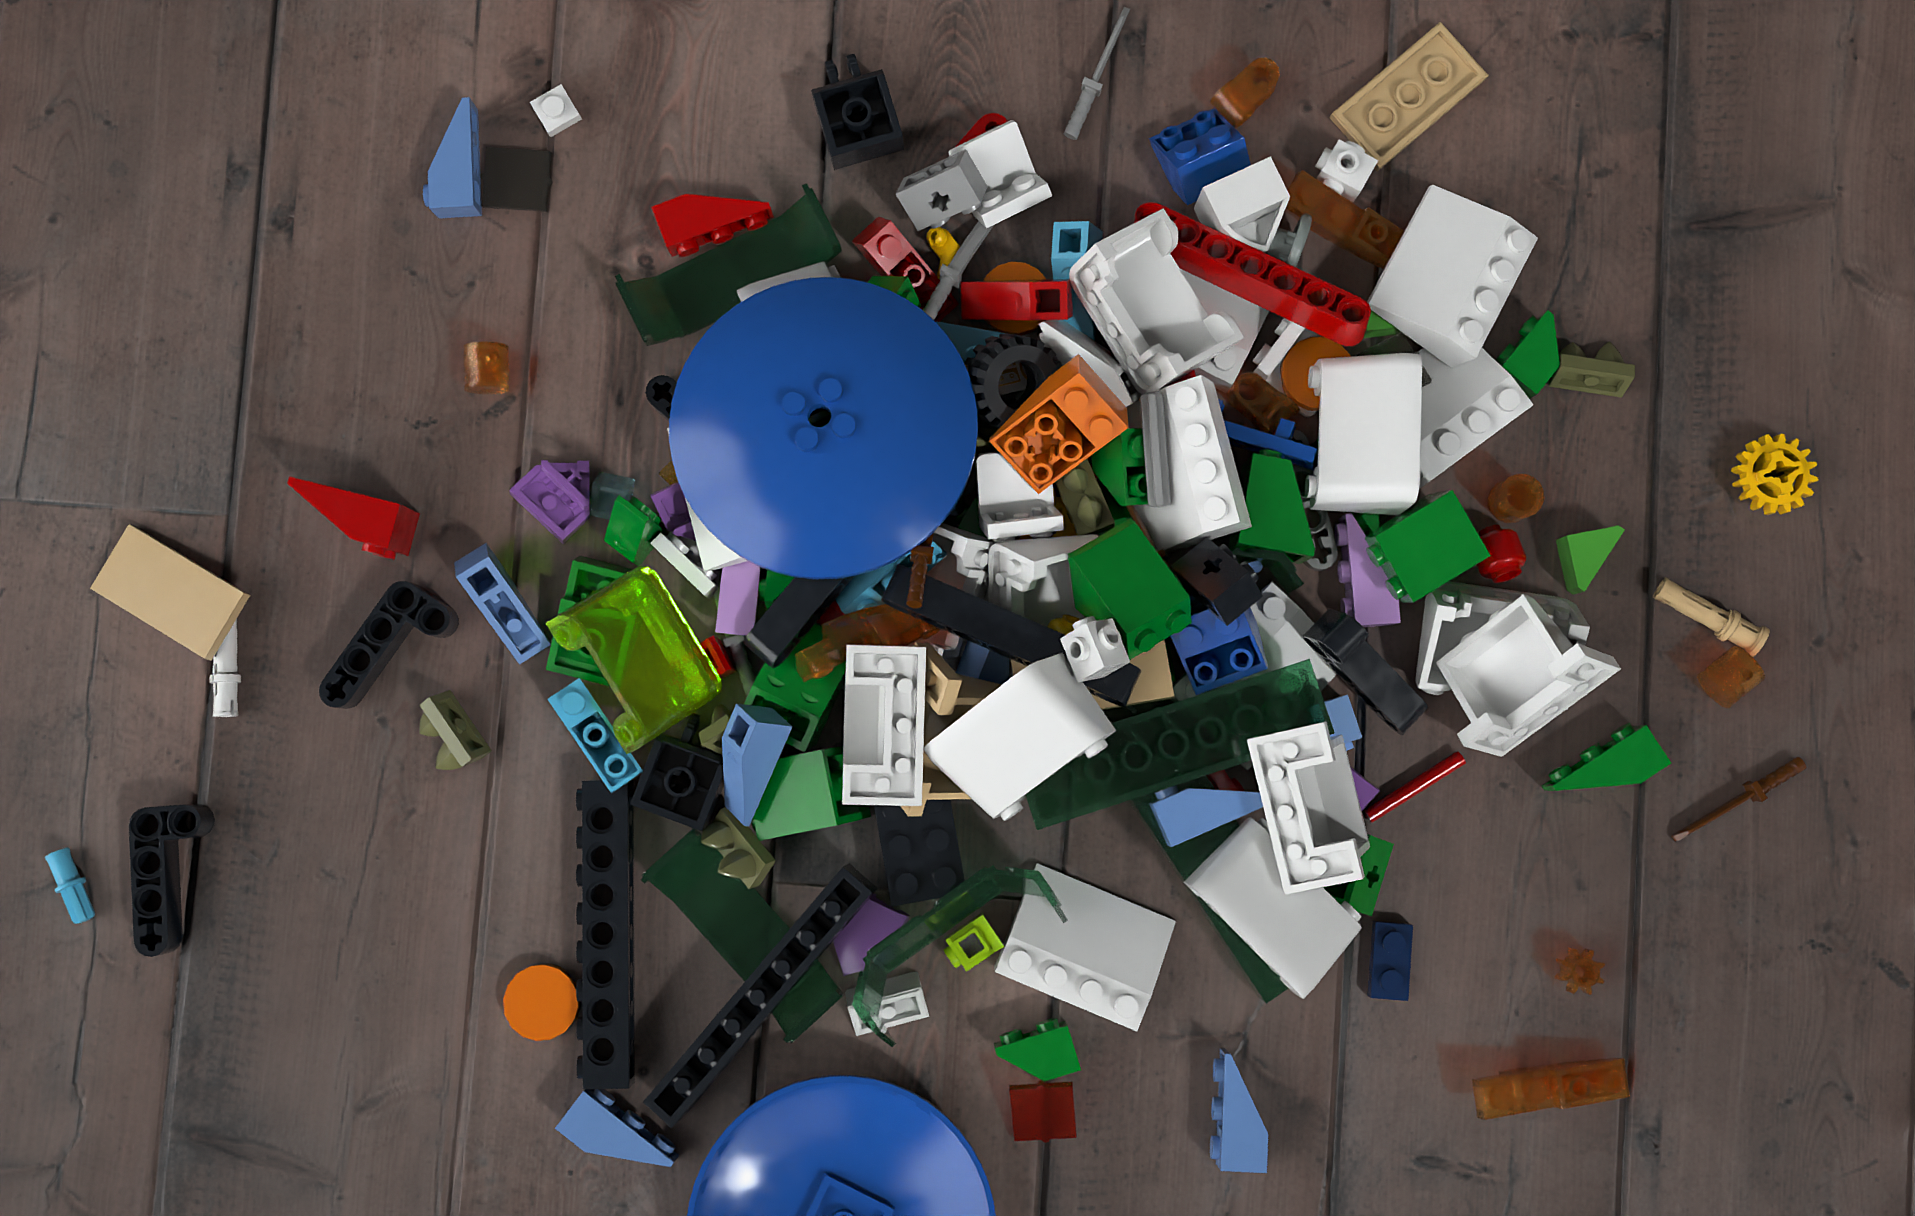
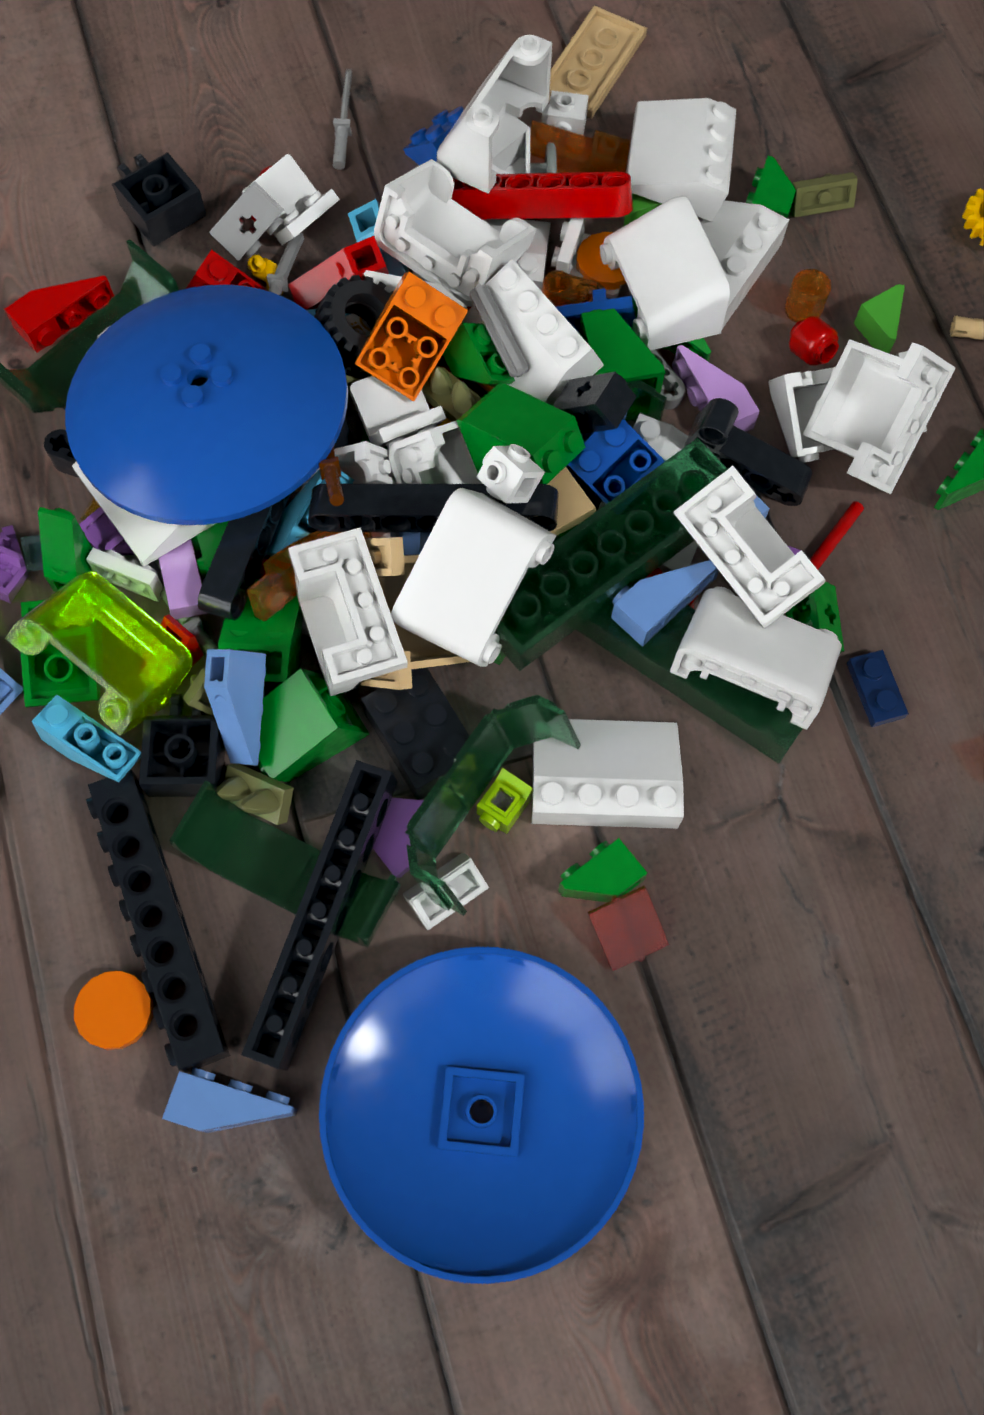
camera: 20 degrees left, 15 degrees down
(1208, 207) = (513, 85): none -> white windscreen
(1241, 1135) = (813, 875): medium blue slope -> none
(1243, 95) = (464, 84): clear orange piece -> none
(1426, 546) = (754, 340): green slope -> none

